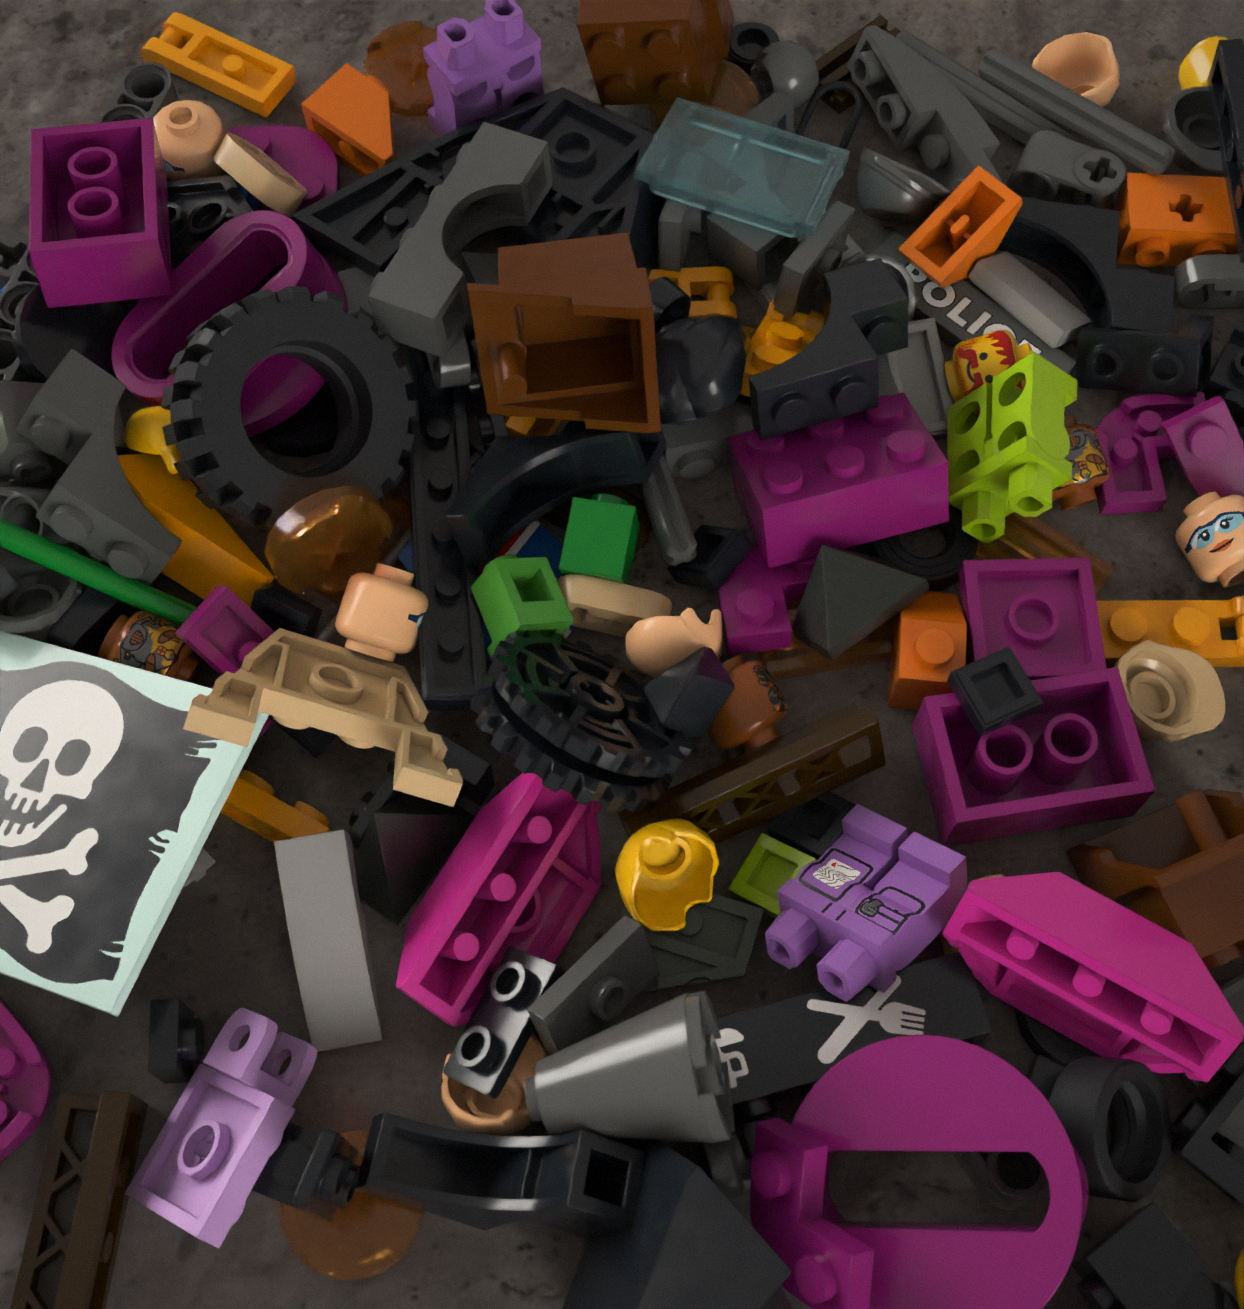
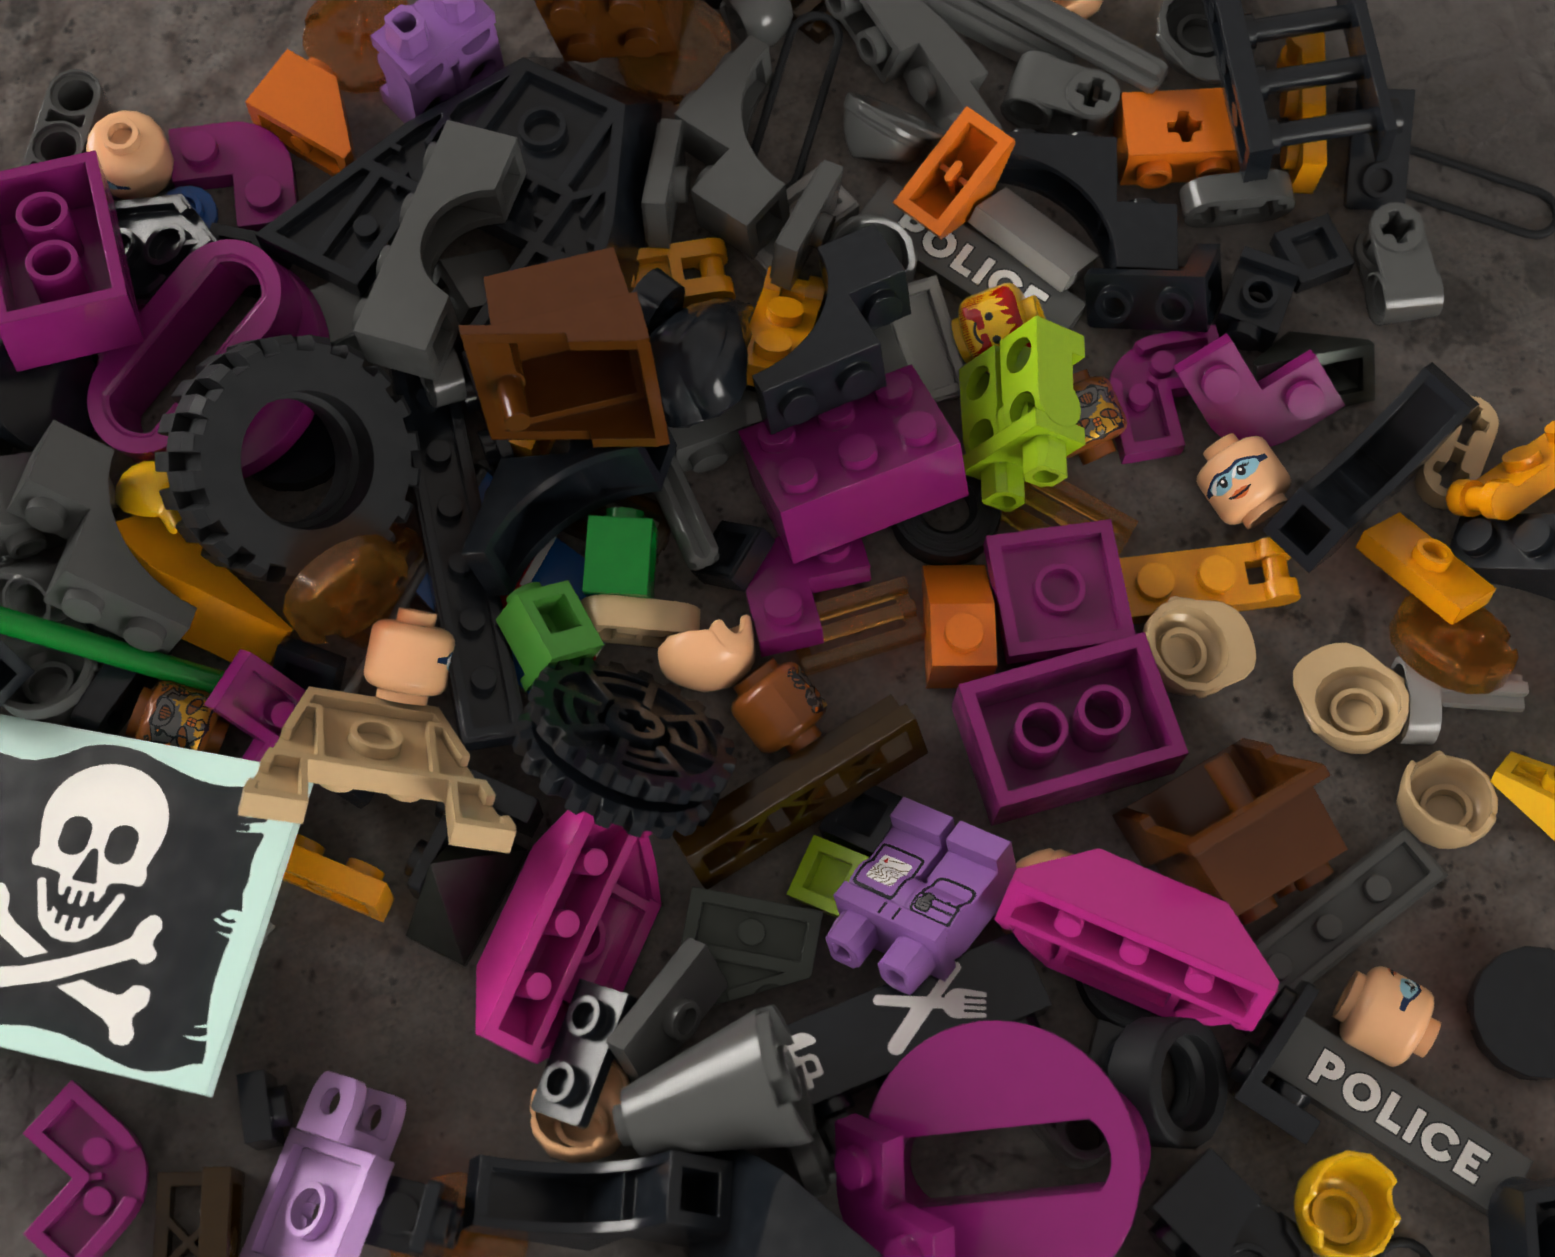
camera: 10 degrees left, 5 degrees up
(220, 64) = (146, 56): light orange plate -> none
(260, 174) = (212, 187): tan beam -> none
(329, 939) = (402, 994): light grey slope -> none
(666, 873) = (724, 890): yellow hair -> none
(690, 693) = (728, 706): black slope -> none
(741, 169) = (721, 134): clear light blue piece -> none
(851, 598) = (879, 586): pearl dark grey slope -> none
(994, 691) = (1025, 672): black tile -> none

